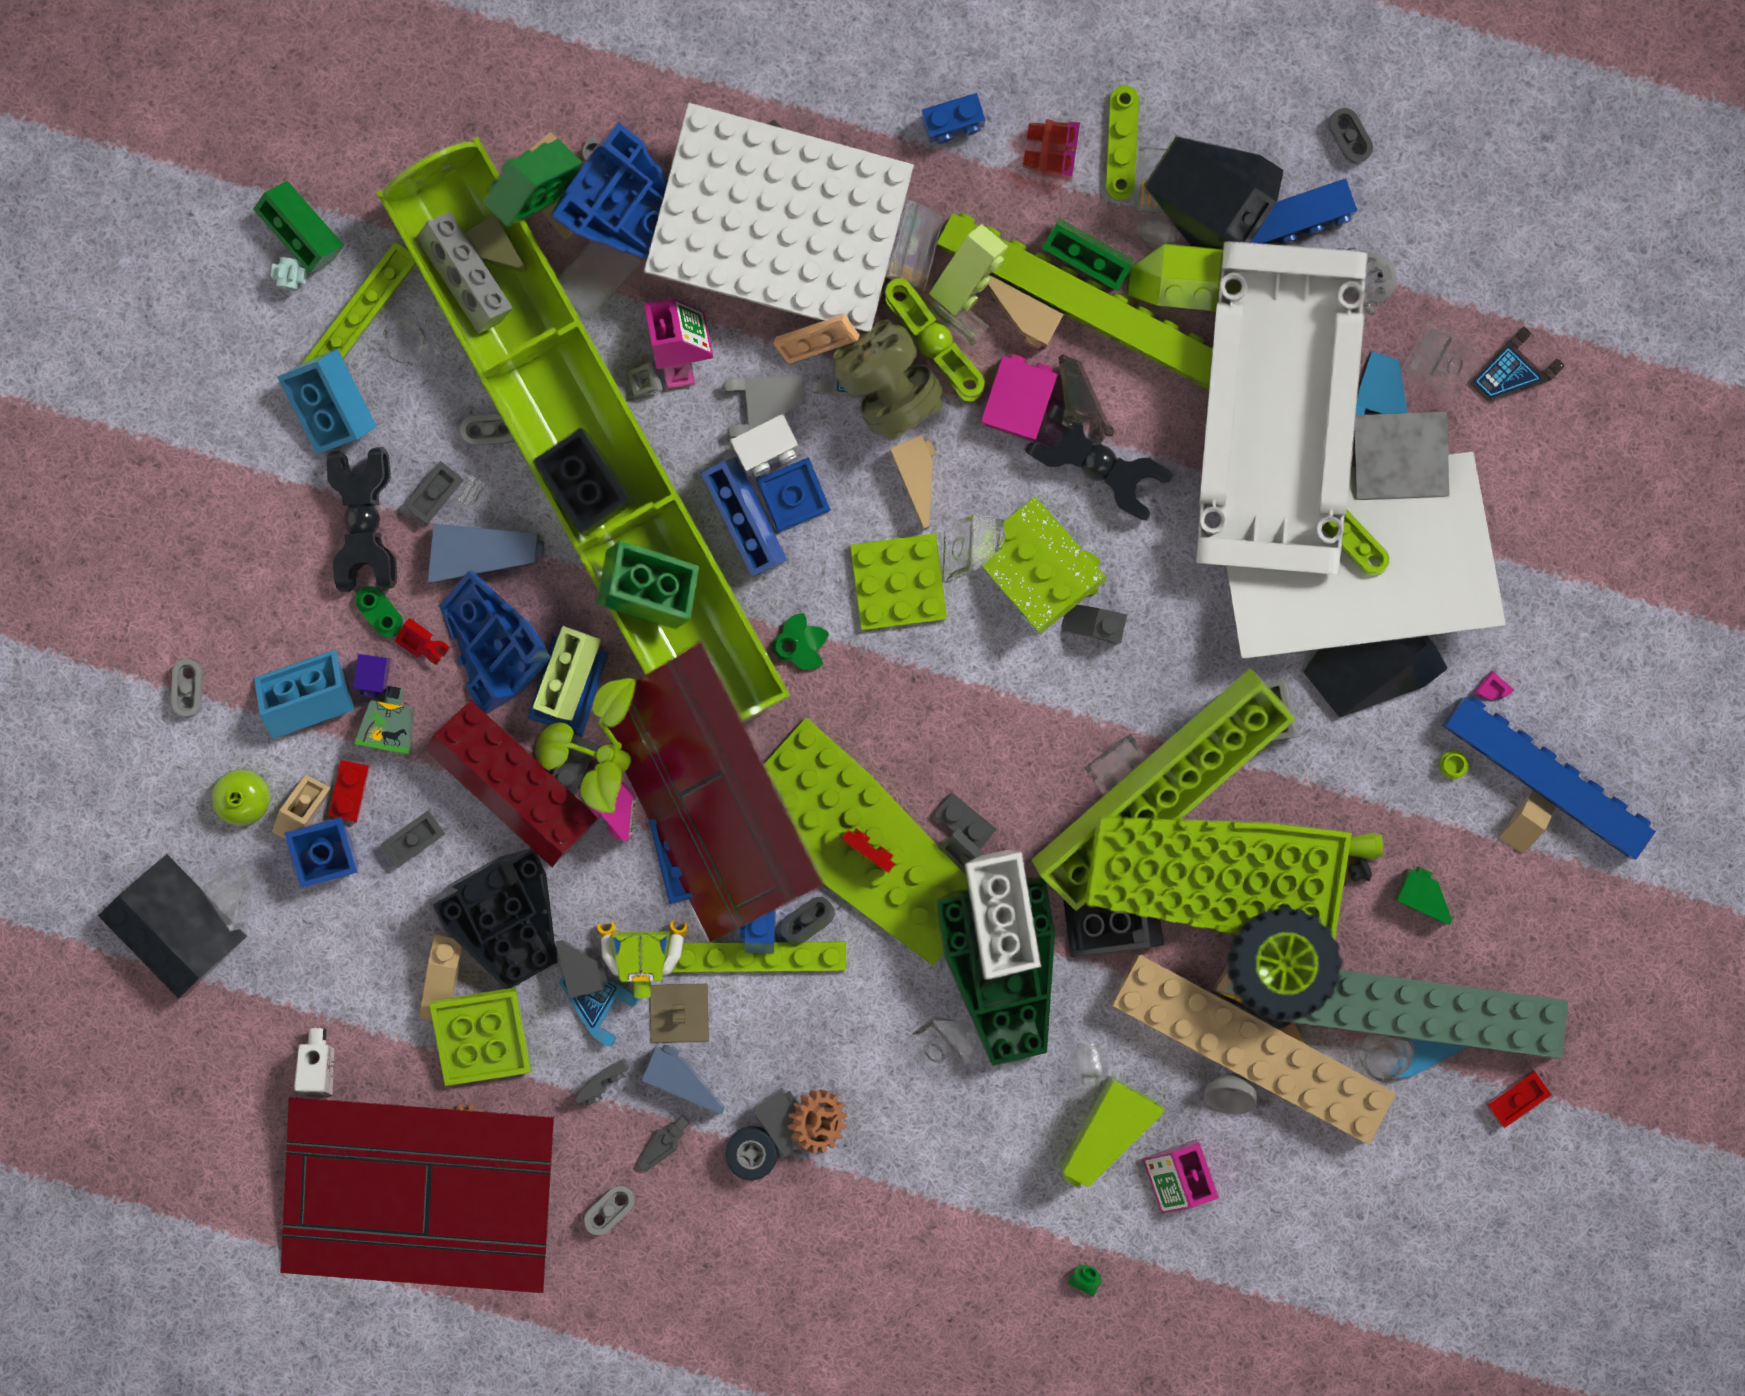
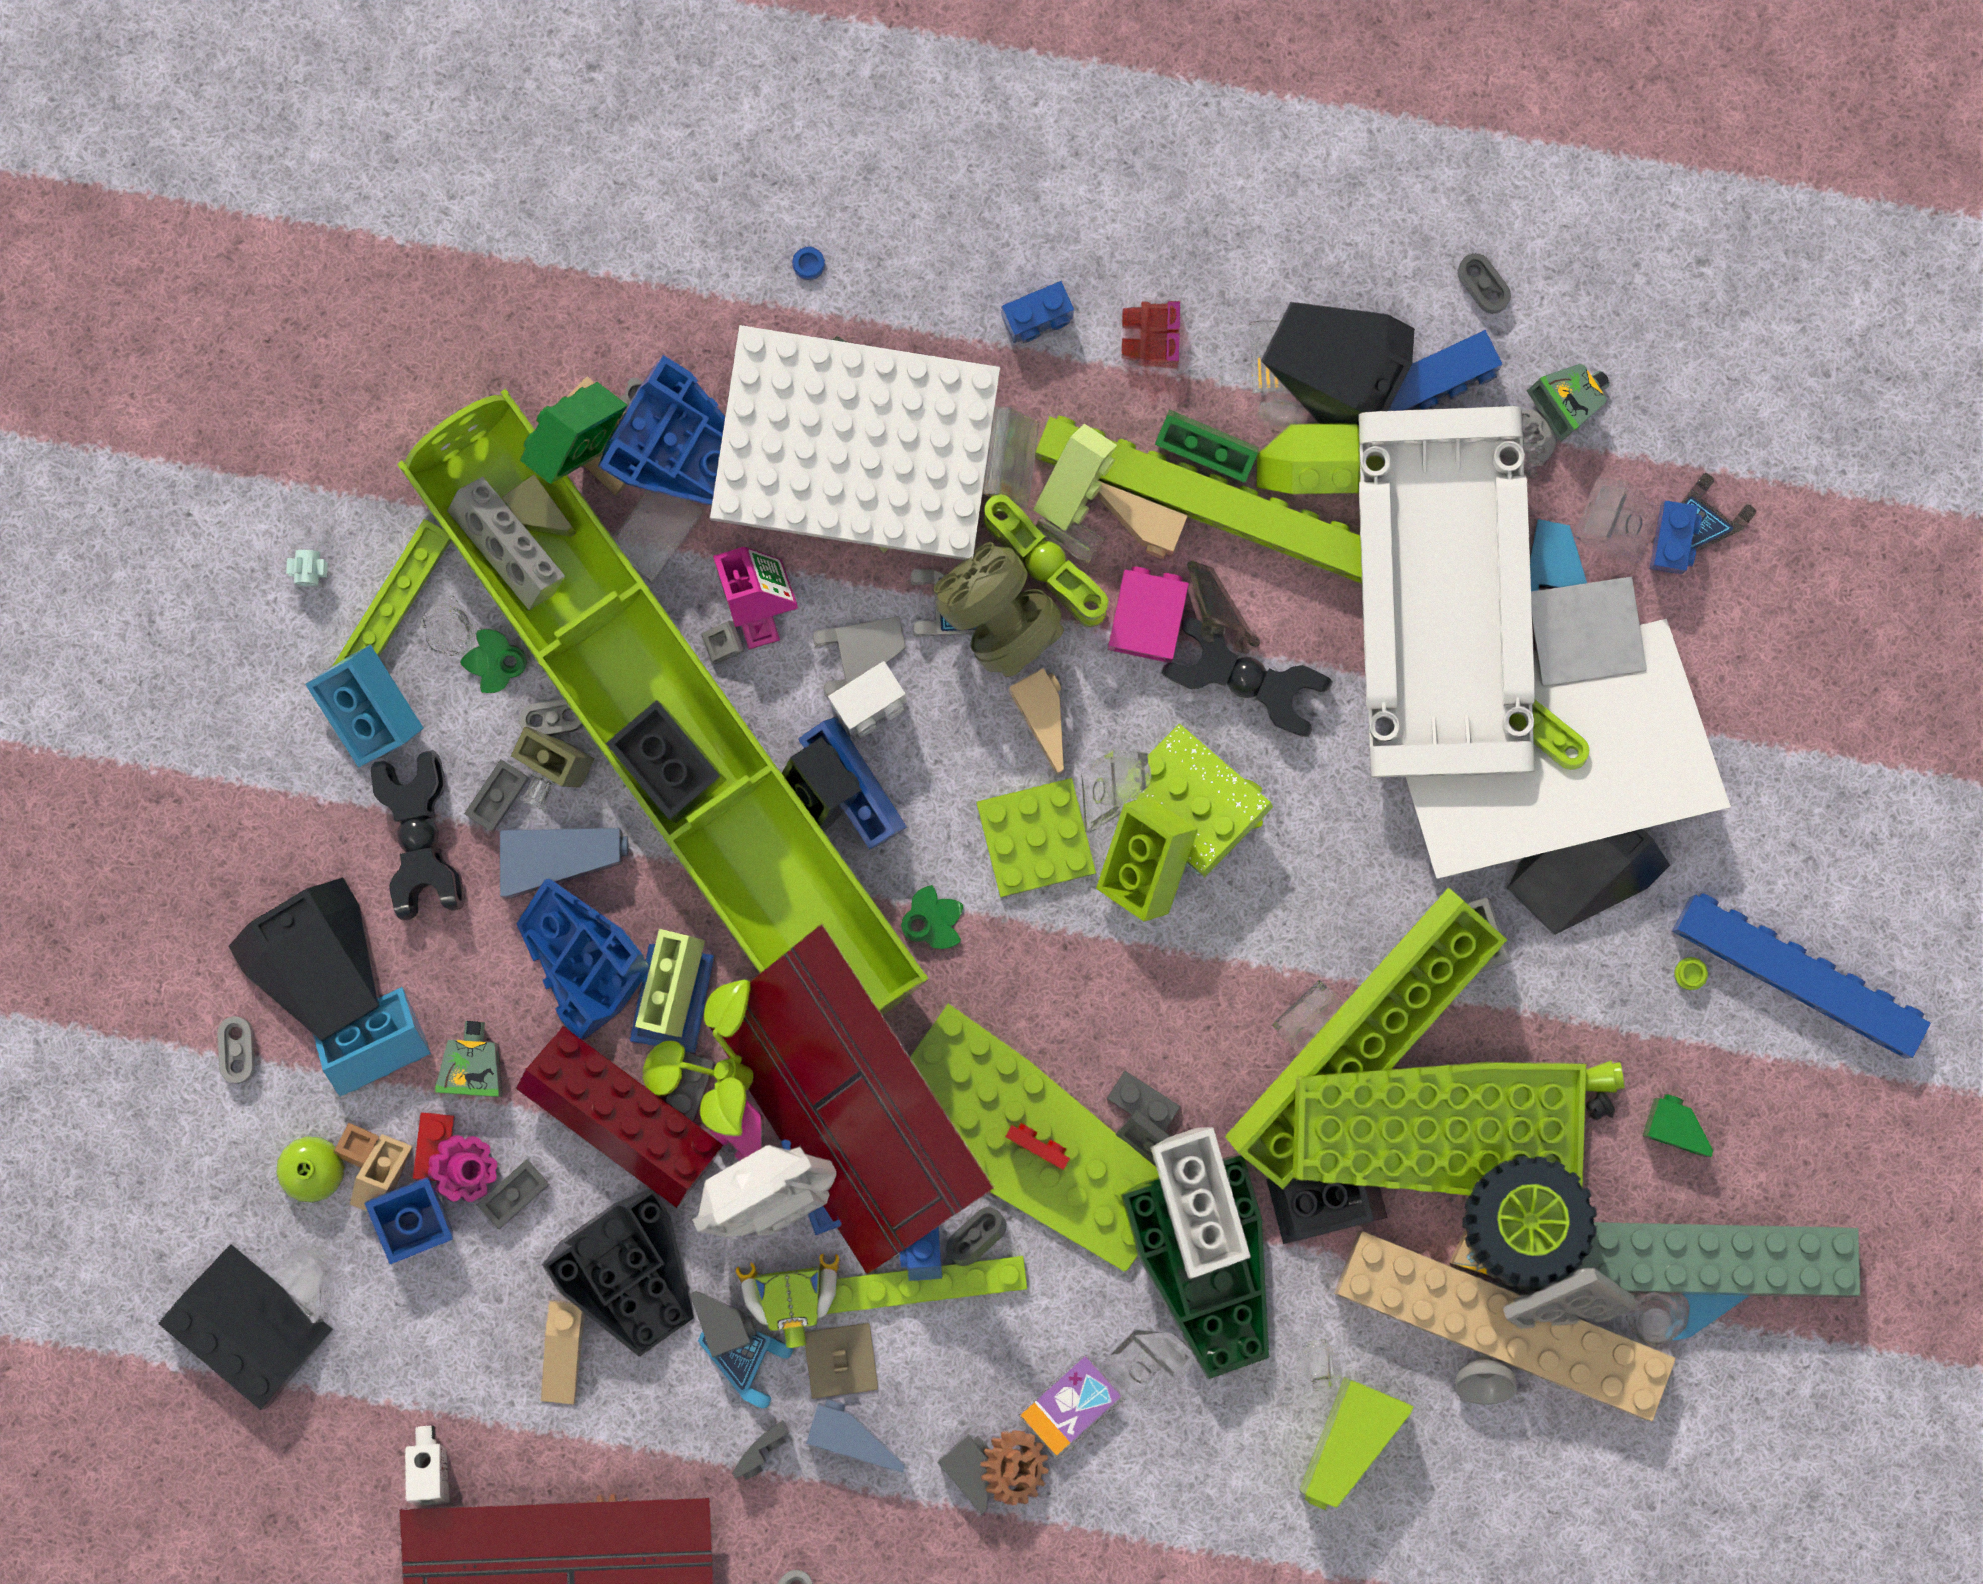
camera: 10 degrees left, 5 degrees down
(260, 616) = (312, 958): none -> black wedge
(282, 781) = (355, 1145): none -> medium nougat plate
(298, 227) = (312, 514): green brick -> none
(371, 674) = (446, 1010): dark purple brick -> none
(372, 812) = (462, 1168): none -> dark pink plant
(379, 611) = (447, 938): green plate -> none
(417, 642) = (496, 967): red plate -> none
(439, 373) = (488, 660): none -> green plate
(480, 1036) = (614, 1414): lime plate -> none
(486, 465) = (552, 758): none -> olive slope
(628, 863) = (764, 1192): none -> white piece
(647, 585) = (752, 871): green brick -> none
(662, 1144) = (838, 1515): dark grey piece -> none
(717, 514) = (822, 782): none -> black slope
(755, 1161) = (942, 1514): black wheel -> none
(756, 51) = (808, 263): none -> blue tile
(793, 494) = (905, 752): blue tile -> none
(816, 339) = (912, 573): light nougat tile -> none
(873, 1075) = (1072, 1406): none -> piece
(991, 612) = (1146, 858): none -> lime brick
(1095, 623) = (1265, 859): dark grey slope -> none
(1122, 143) = (1230, 319): lime plate -> none
(1180, 1177) = (1440, 1485): dark pink slope -> none
(1303, 1036) = (1583, 1295): none -> light grey plate
(1412, 247) = (1569, 397): none -> sand green torso
(1488, 381) = (1674, 537): none -> blue brick
(1493, 687) = (1724, 881): dark pink tile -> none
(1518, 1099) = (1816, 1349): red plate -> none
(1528, 822) = (1784, 1030): tan slope -> none

